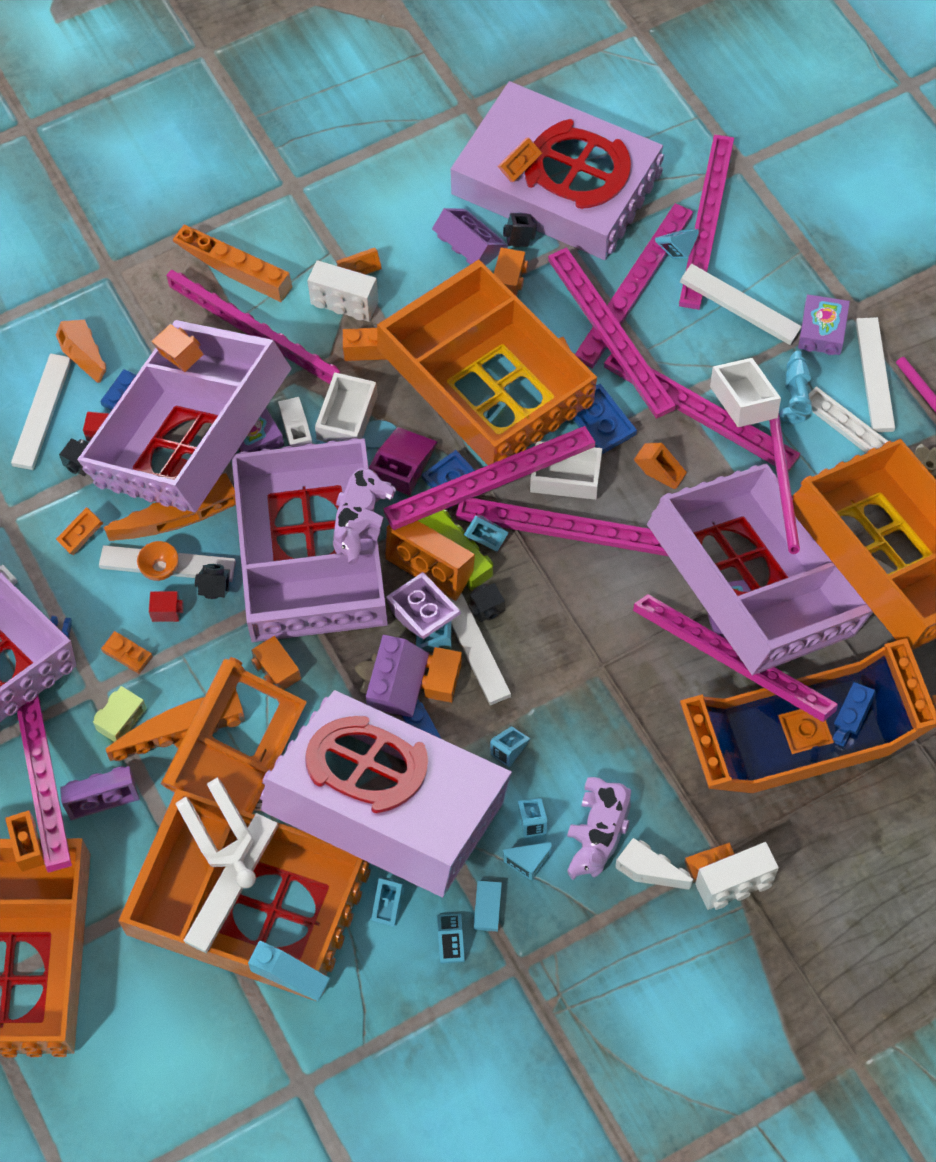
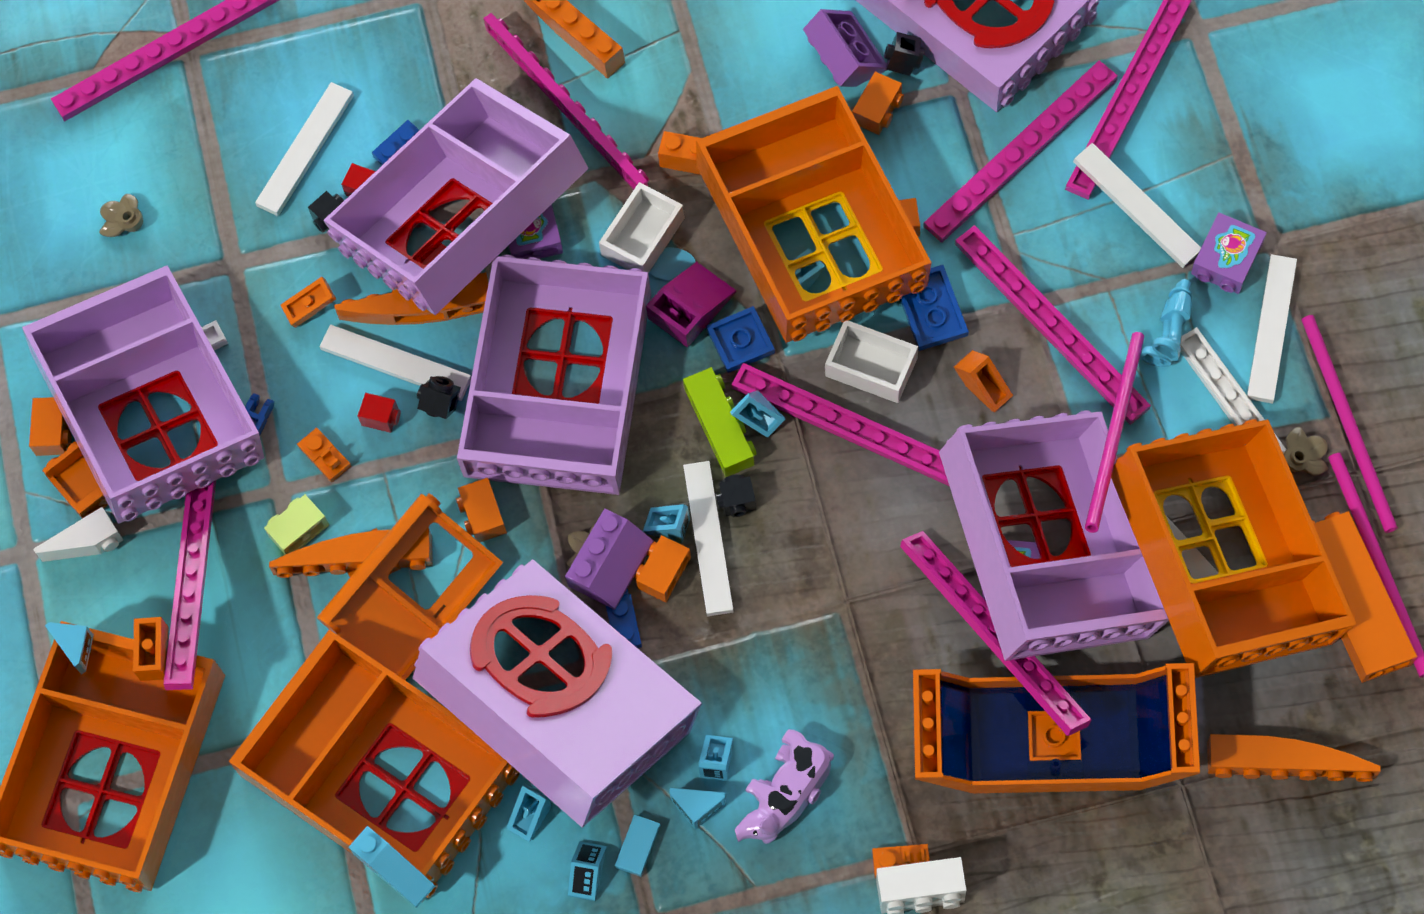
camera: 20 degrees right, 5 degrees up
(79, 346) = (364, 80): orange slope -> none
(99, 793) = (250, 609): medium lavender slope -> none
(154, 553) = (378, 349): orange piece -> none
(178, 347) = (466, 115): orange brick -> none
(227, 889) = (358, 751): white tile -> none
(233, 853) = (368, 720): white piece -> none
(295, 422) = (580, 232): white slope -> none
(343, 291) = (678, 84): white piece -> none
(356, 512) = (611, 359): lavender animal -> none
(362, 262) = (707, 54): orange plate -> none
(421, 606) = (659, 484): lavender slope -> none
(424, 550) = (684, 426): orange slope -> none
(488, 478) = (776, 352): dark pink plate -> none
(508, 745) = (713, 668): medium azure slope -> none
(612, 333) = (973, 207): dark pink plate -> none
(646, 866) = (824, 847): white slope -> none
(678, 243) = (1087, 112): medium azure slope -> none
(745, 392) = (1106, 317): white piece -> none
(853, 712) = (1111, 731): blue plate -> none

